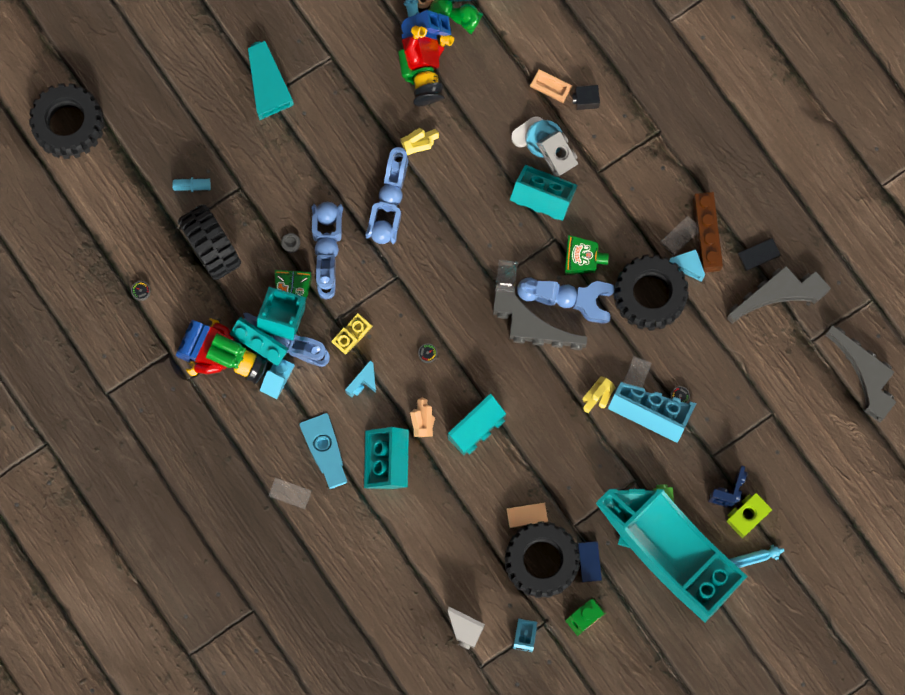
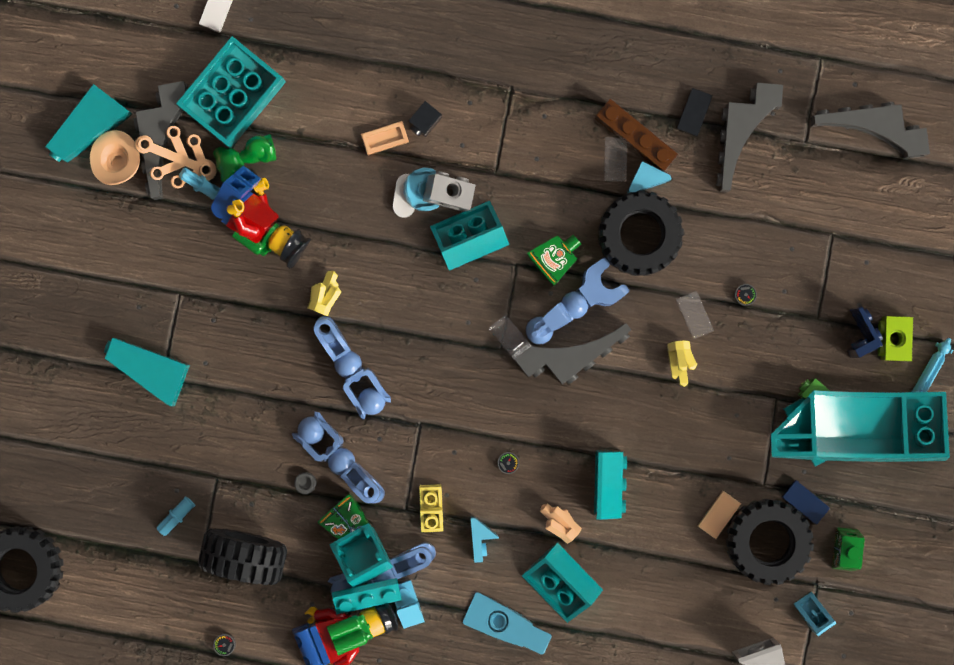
camera: 40 degrees left, 10 degrees up
(652, 410) = (738, 329): medium azure wedge -> none

